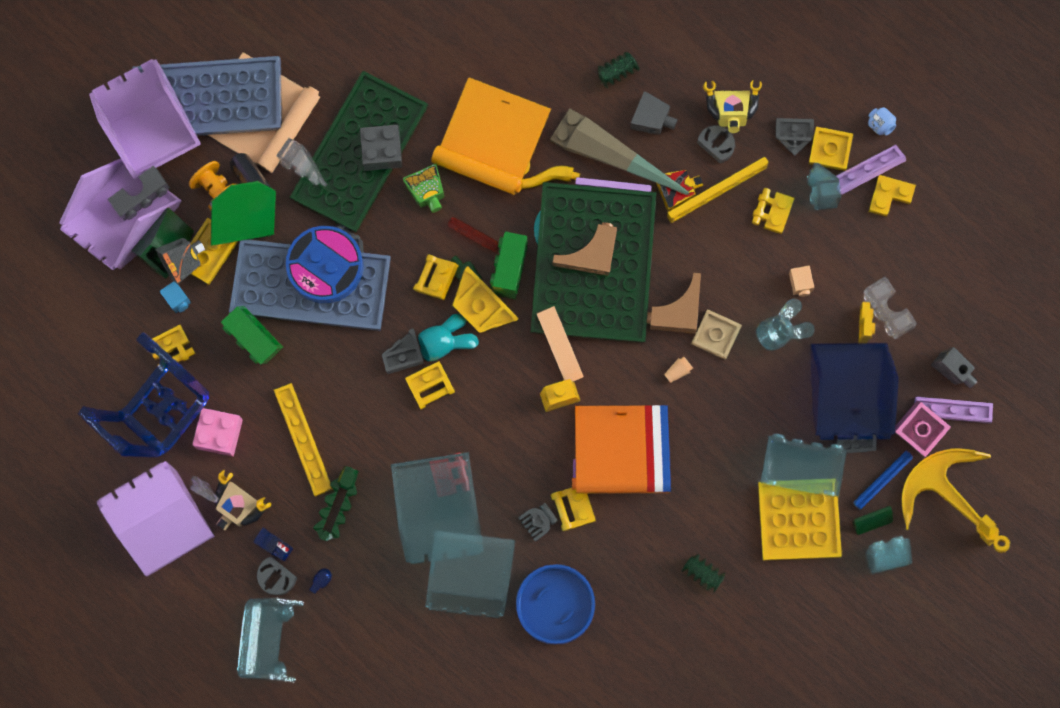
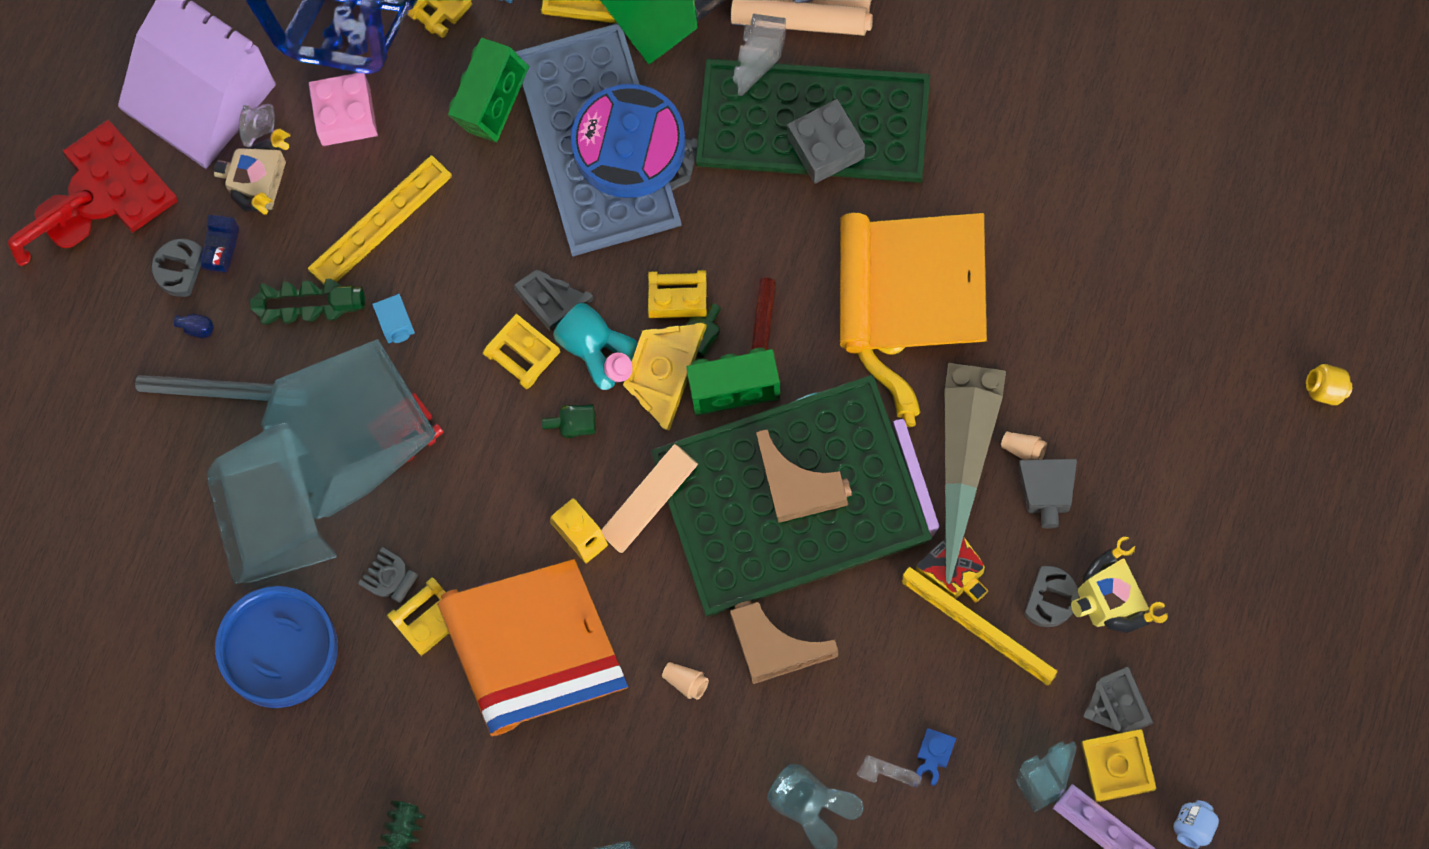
camera: 70 degrees right, 5 degrees down
(192, 599) = (108, 182): none -> red plate
(262, 639) = (81, 288): clear light blue windscreen -> none
(370, 580) = (203, 387): none -> dark grey axle
(374, 454) = (394, 319): none -> dark azure brick
(426, 187) = (800, 228): torso -> none
(469, 329) = (618, 367): none -> bright pink plate
(488, 372) = (573, 421): none -> dark green piece
(617, 68) = (1094, 410): clear green piece -> none
(620, 118) = (1024, 446): none -> light nougat cone
(716, 334) = (762, 713): tan tile -> none
(777, 280) = (873, 766): none -> clear piece
(778, 213) = (985, 729): yellow plate -> none
(780, 246) = (935, 752): none -> blue plate
(801, 281) = (894, 803): light nougat brick -> none

